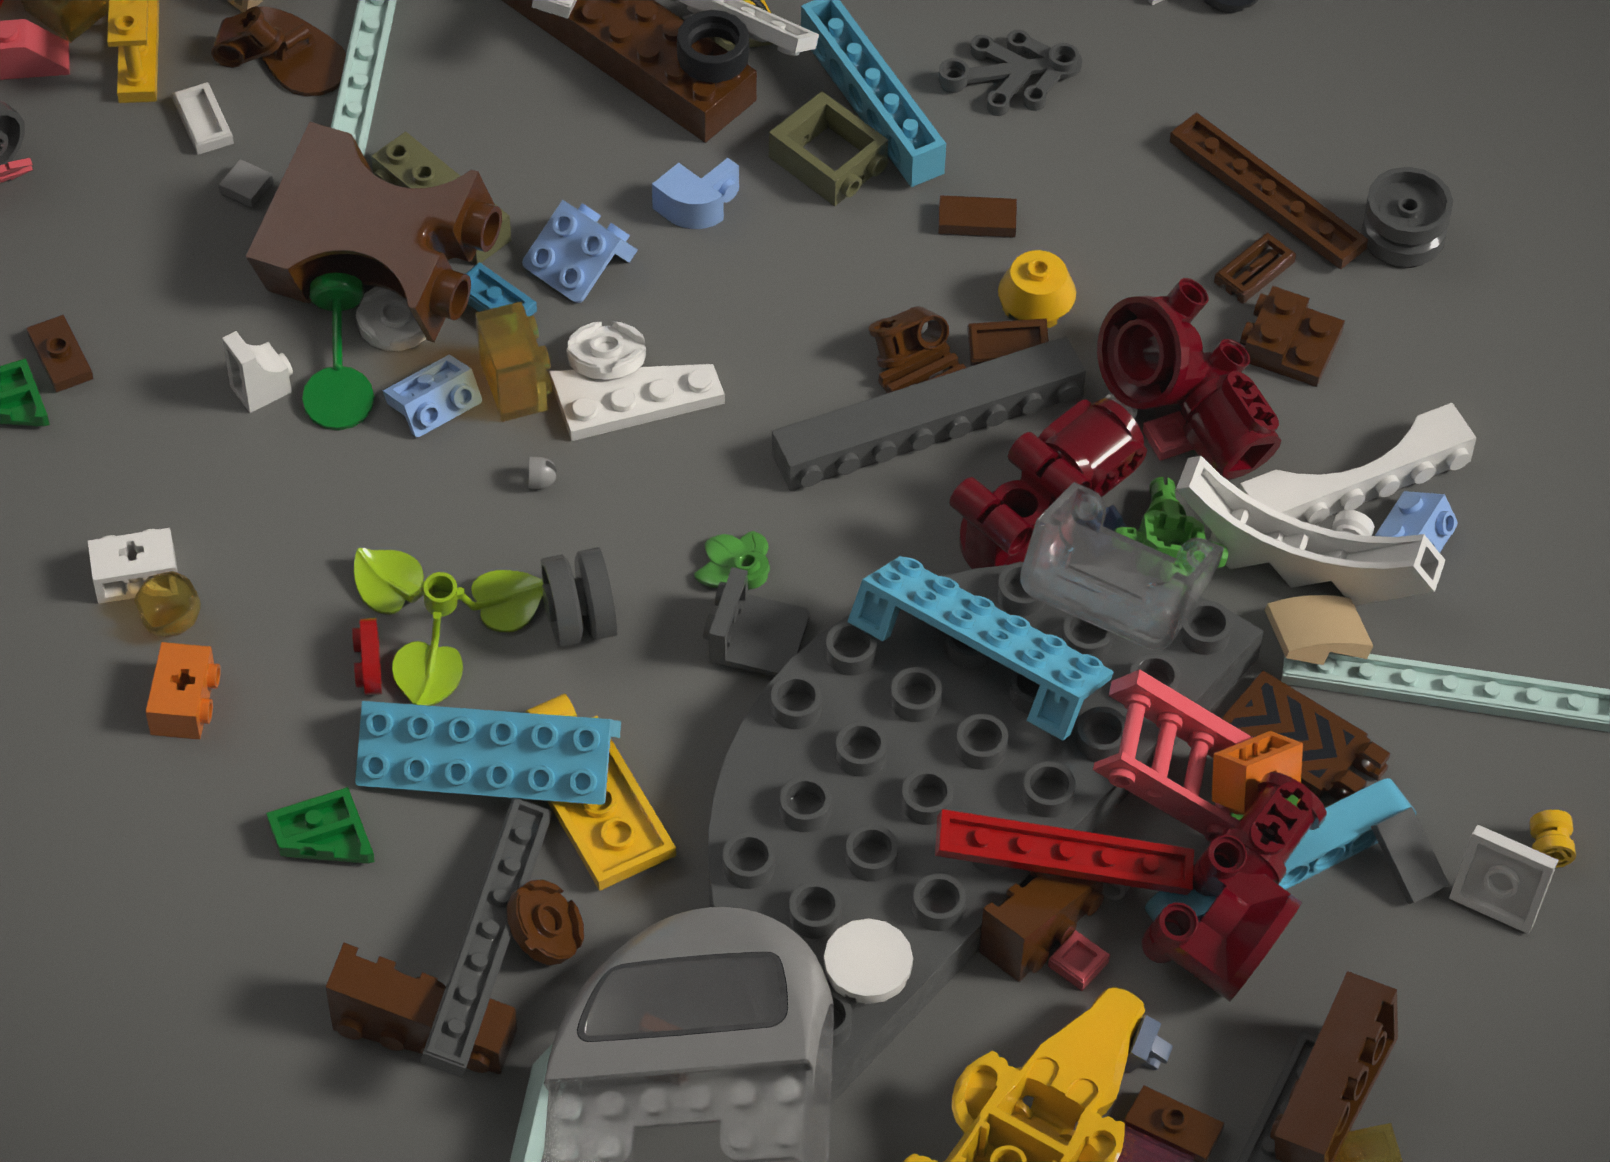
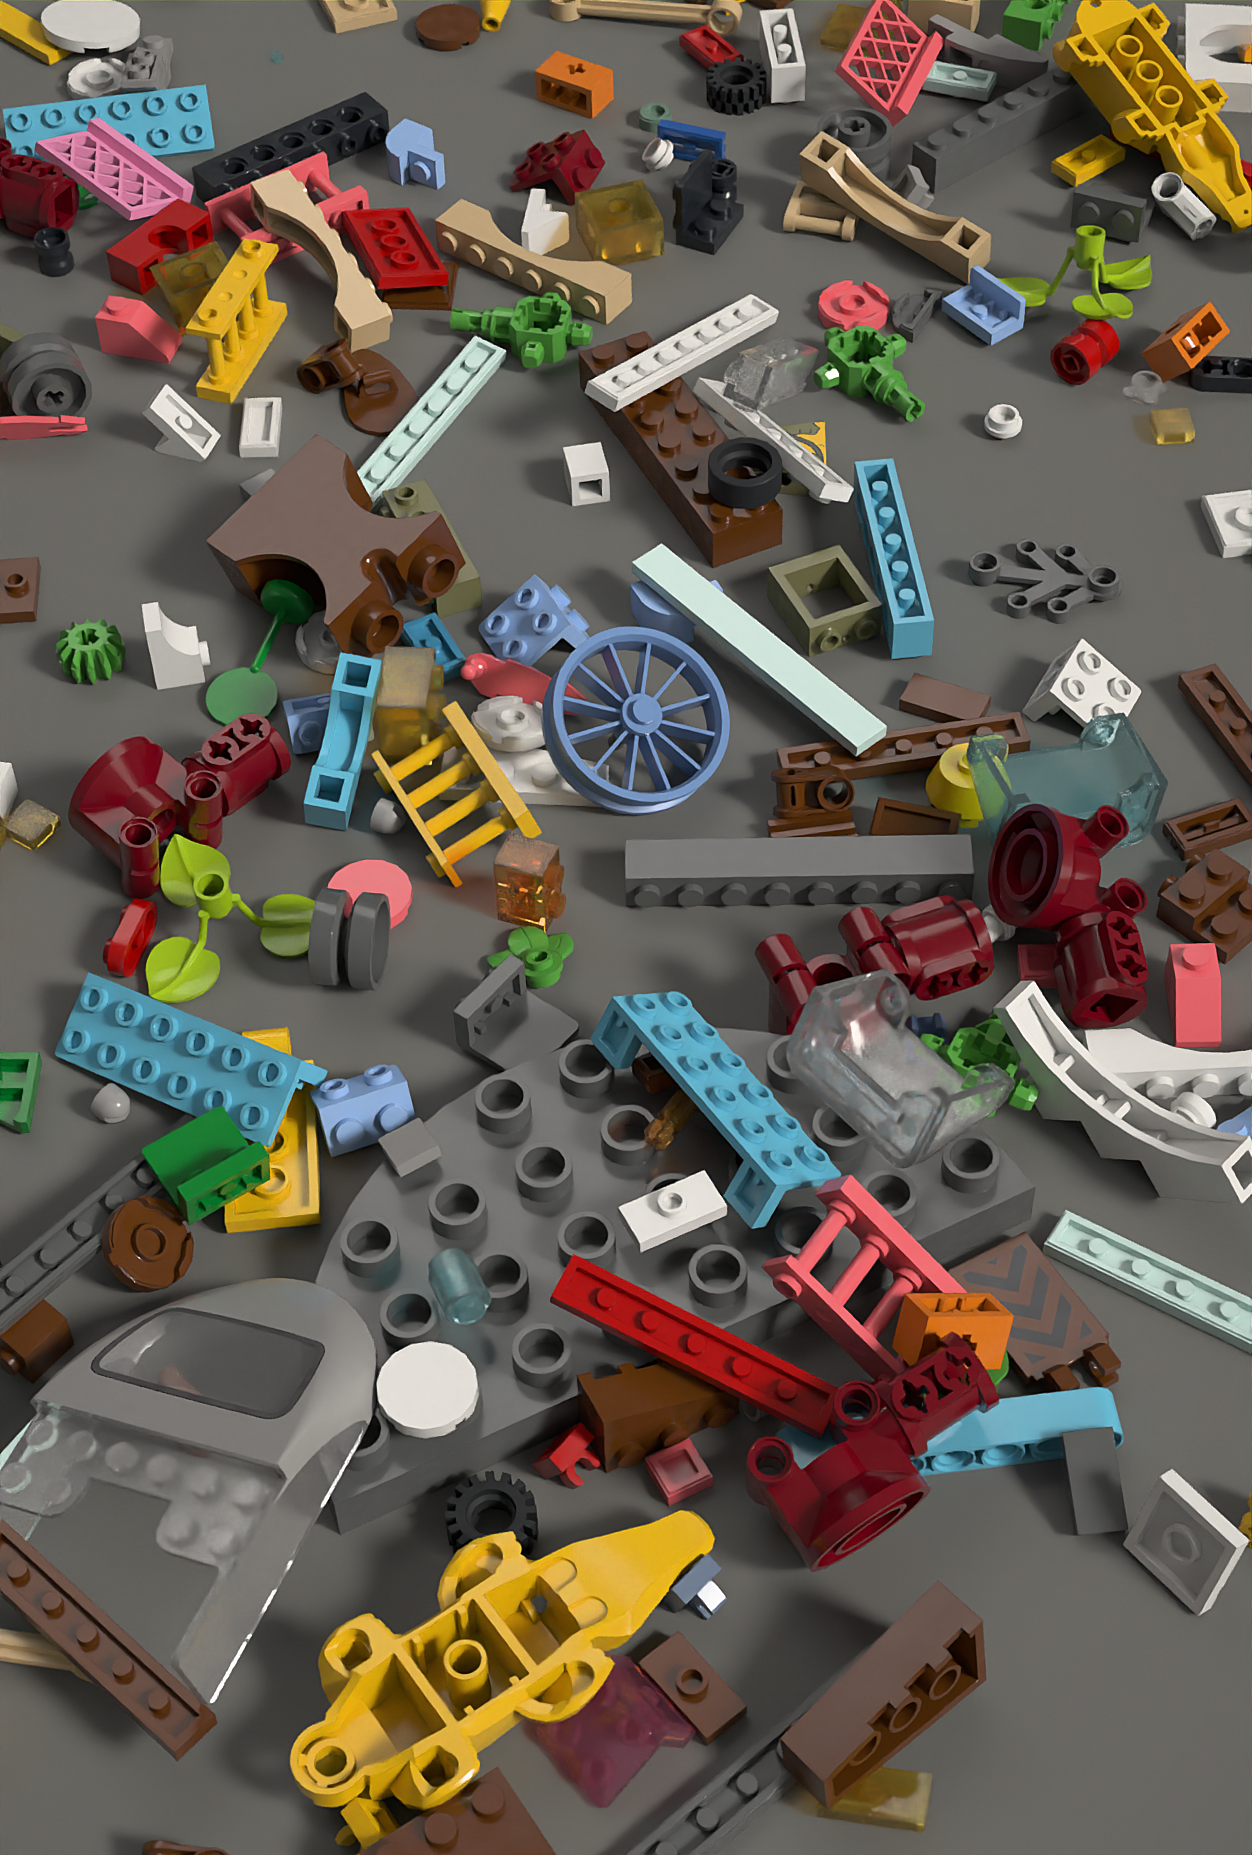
camera: 25 degrees right, 5 degrees down
(129, 142) = (183, 428): none -> white slope
(172, 394) = (90, 651): none -> bright green gear
(211, 578) = (31, 824): none -> clear yellow tile
(324, 515) = (142, 793): none -> dark red piece
(438, 813) = (111, 1104): none -> light grey hinge
(468, 389) = (344, 744): none -> medium azure arch
(547, 82) = (586, 474): none -> white brick
(555, 537) = (377, 877): none -> coral tile
(563, 836) = (206, 1164): none -> green bracket
(586, 306) = (510, 678): none -> coral piece
(601, 396) = (492, 789): none -> yellow fence
(666, 744) = (362, 1108): none -> light blue bracket
(709, 496) = (528, 882): none -> clear orange brick
(731, 317) = (635, 720): none -> medium blue wheel
(737, 764) = (409, 1147): none -> light grey tile
(799, 214) = (759, 650): none -> light aqua tile
(853, 868) = (458, 1286): none -> clear light blue brick
(914, 633) = (651, 1073): none -> reddish brown tile
(948, 1029) = (491, 1495): none -> black tyre
(952, 669) = (672, 1120): none -> clear orange axle
(968, 269) = (906, 748): none -> reddish brown plate
(983, 977) = (563, 1454): none -> red tile
(991, 747) = (672, 1211): none -> white plate
(1094, 166) = (1082, 686): none -> white bracket
(1138, 258) = (1077, 778): none -> clear light blue windscreen
(1309, 422) = (1194, 995): none -> coral slope
(1318, 625) = (1103, 1201): tan slope -> none

